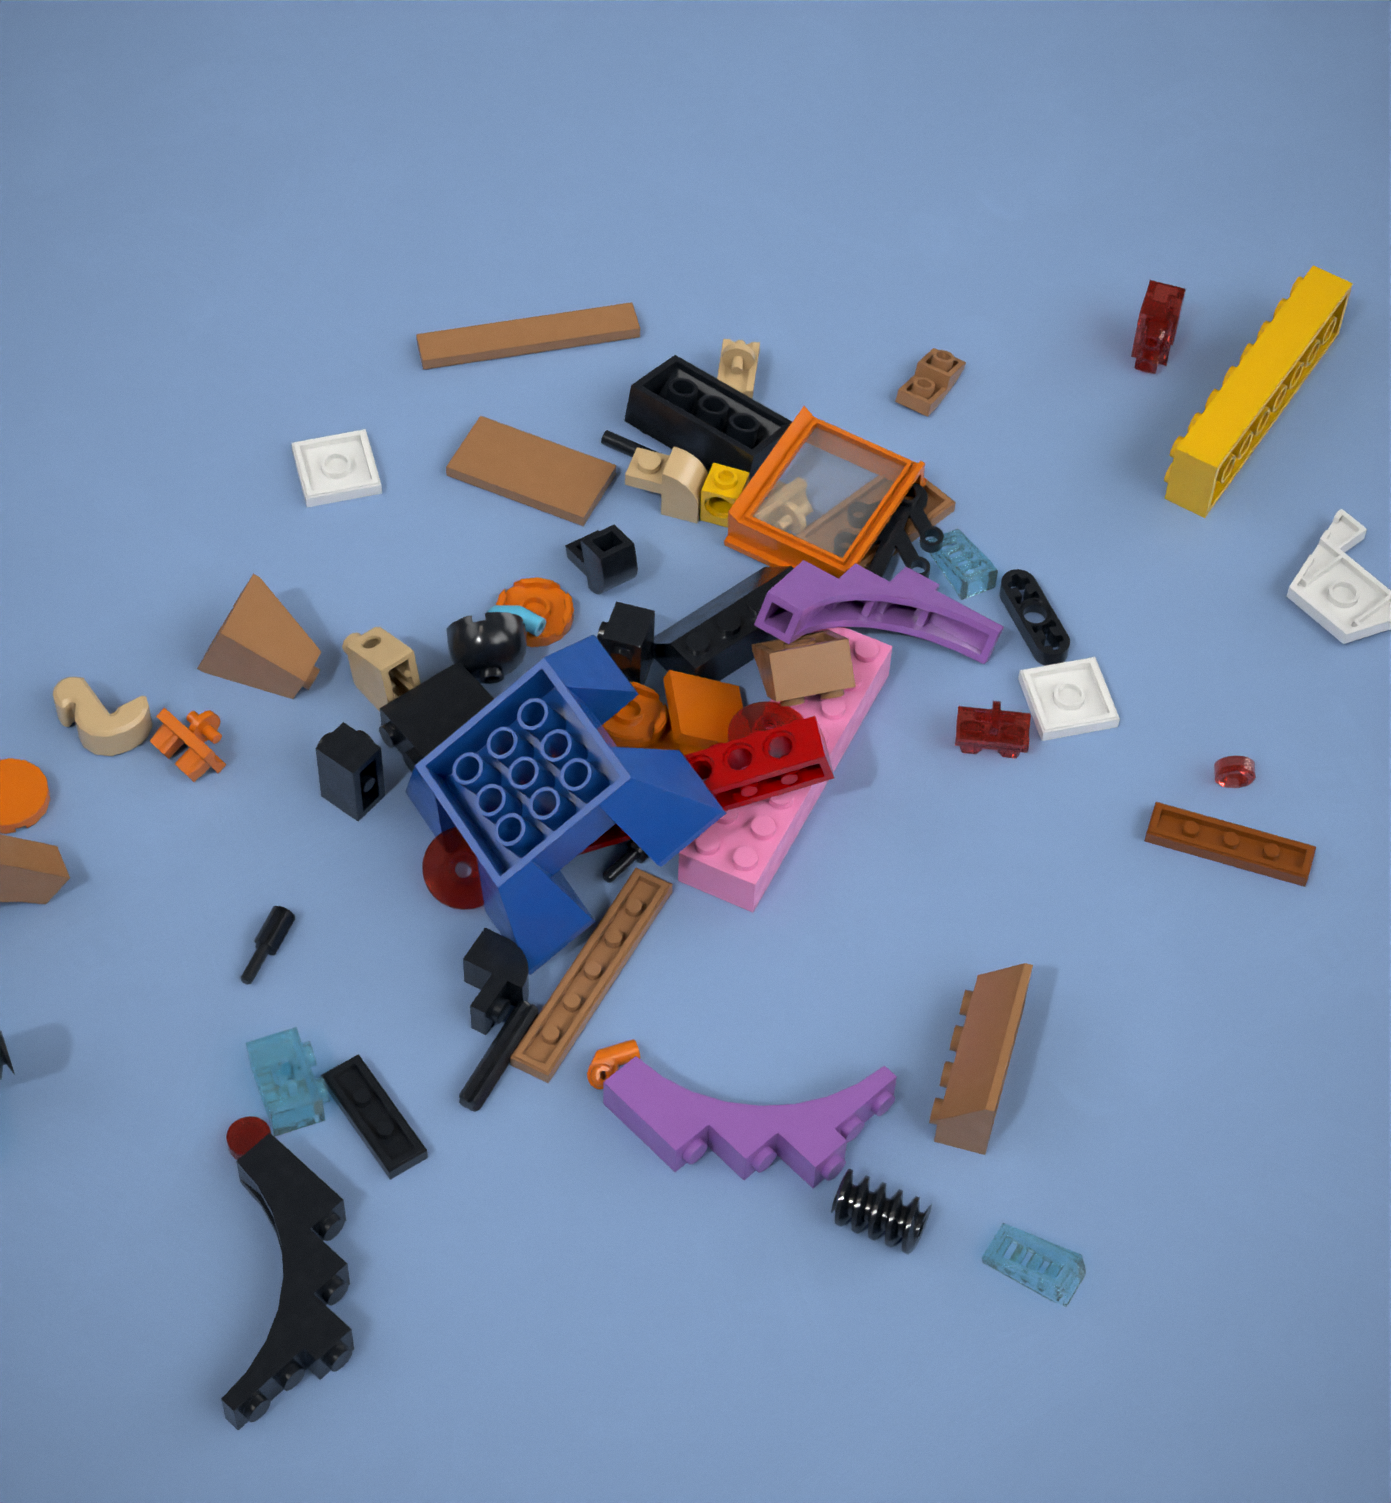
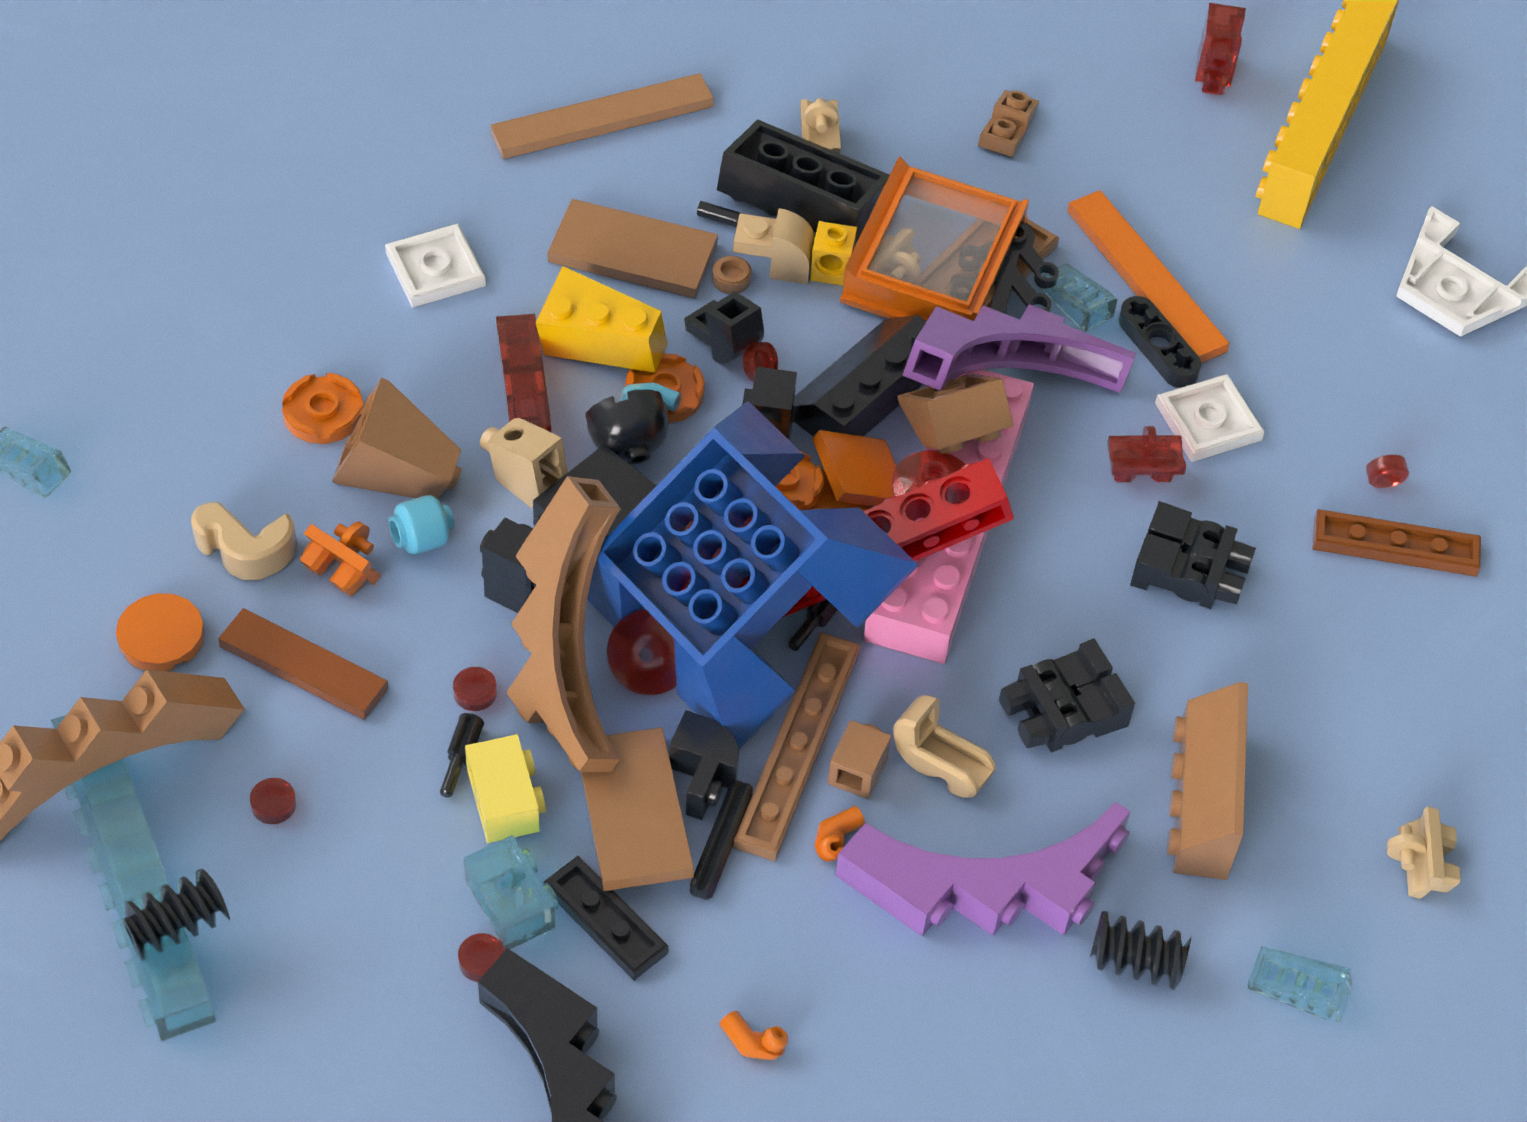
camera: 10 degrees left, 0 degrees up
(82, 967) = (273, 800): none -> clear red tile
(136, 841) = (303, 663): none -> dark orange tile
(200, 596) = (322, 408): none -> orange tile
(270, 720) = (420, 524): none -> medium azure head
(293, 883) = (474, 688): none -> clear red tile
(298, 981) = (503, 788): none -> light yellow brick
(370, 827) = (552, 622): none -> medium nougat arch
(398, 581) = (523, 370): none -> clear red slope
(419, 1016) = (637, 815): none -> medium nougat tile
(479, 544) = (600, 325): none -> yellow wedge
(491, 1254) = (754, 1044): none -> orange arm
(623, 506) = (731, 274): none -> medium nougat tile
(632, 591) = (759, 355): none -> clear red tile
(646, 994) = (859, 759): none -> medium nougat brick
(725, 995) = (939, 751): none -> tan animal
(863, 960) = (1068, 699): none -> black hips
(1016, 835) = (1191, 558): none -> black hips
(1036, 548) = (1146, 273): none -> orange tile
(1179, 1152) = (1421, 853): none -> tan hips

